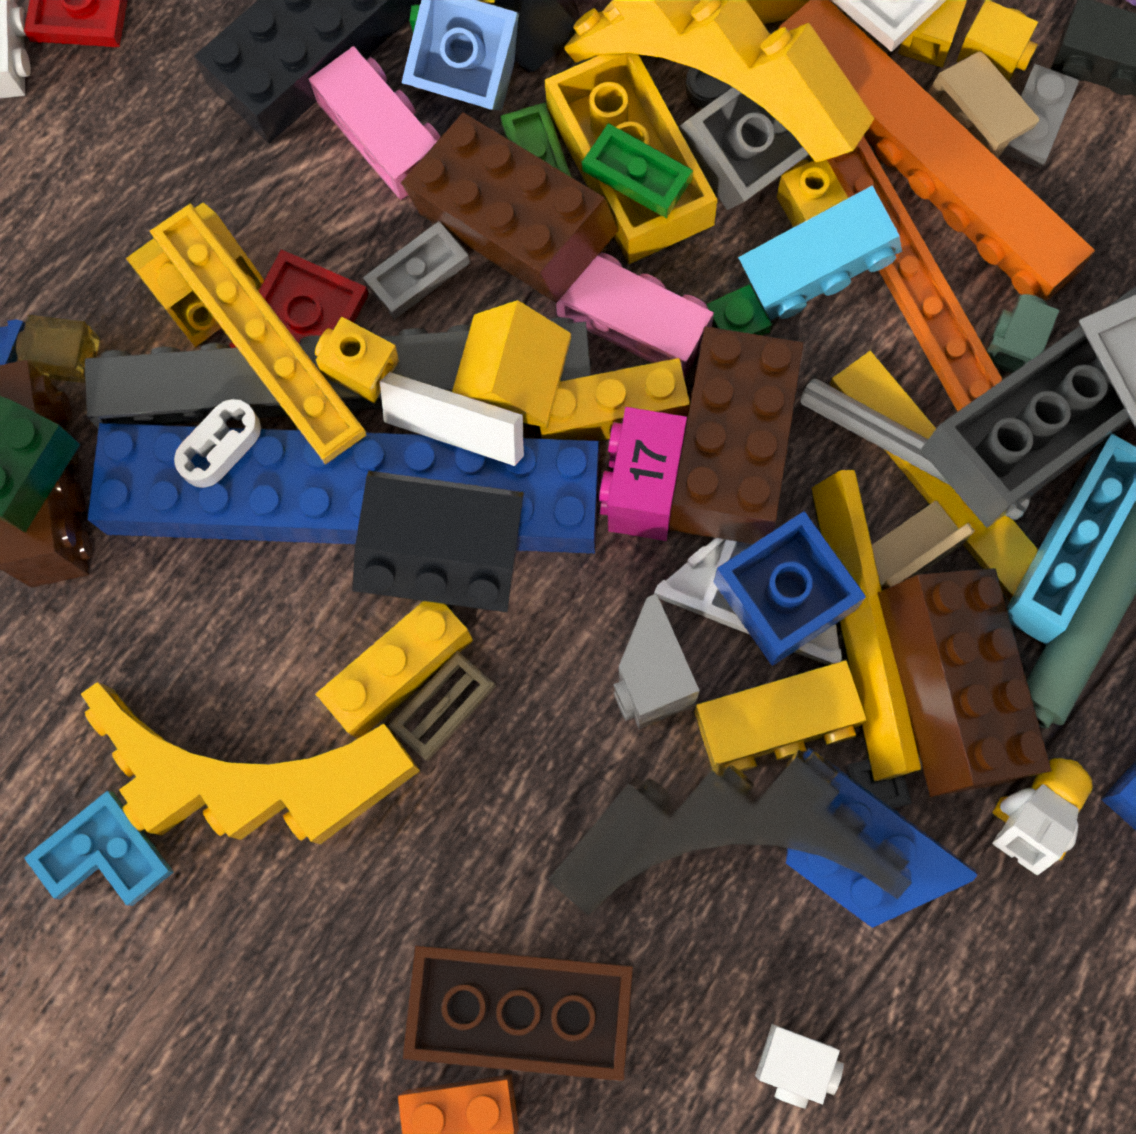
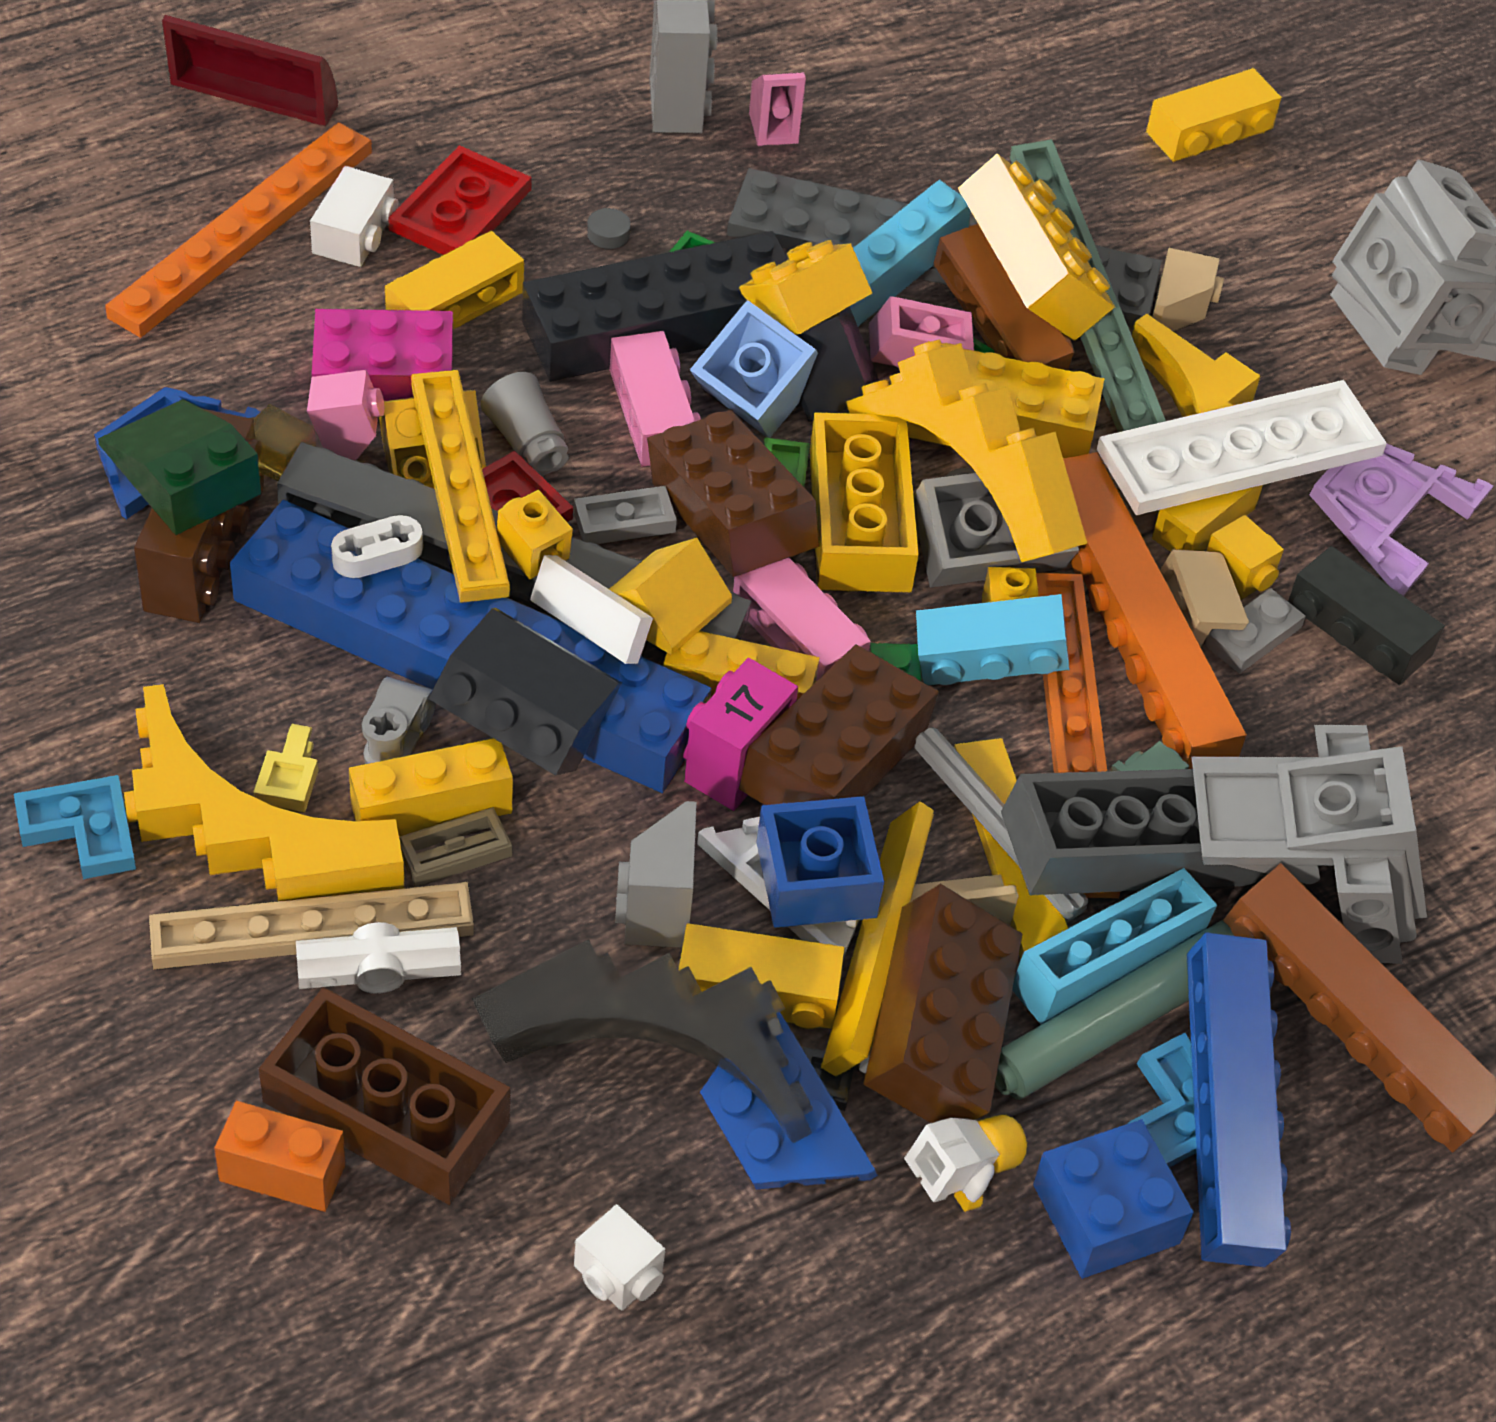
camera: 10 degrees right, 25 degrees down
(101, 204) = (383, 343): none -> dark pink brick
(106, 299) = (345, 411): none -> bright pink slope
(128, 84) = (462, 281): none -> yellow brick
(259, 711) = (289, 776): none -> light yellow plate
(276, 211) = (525, 421): none -> light grey plant
(324, 597) = (396, 720): none -> light grey piece
(357, 852) = (274, 927): none -> tan tile
(436, 863) = (378, 958): none -> white piece
(637, 170) = (857, 500): green plate -> none

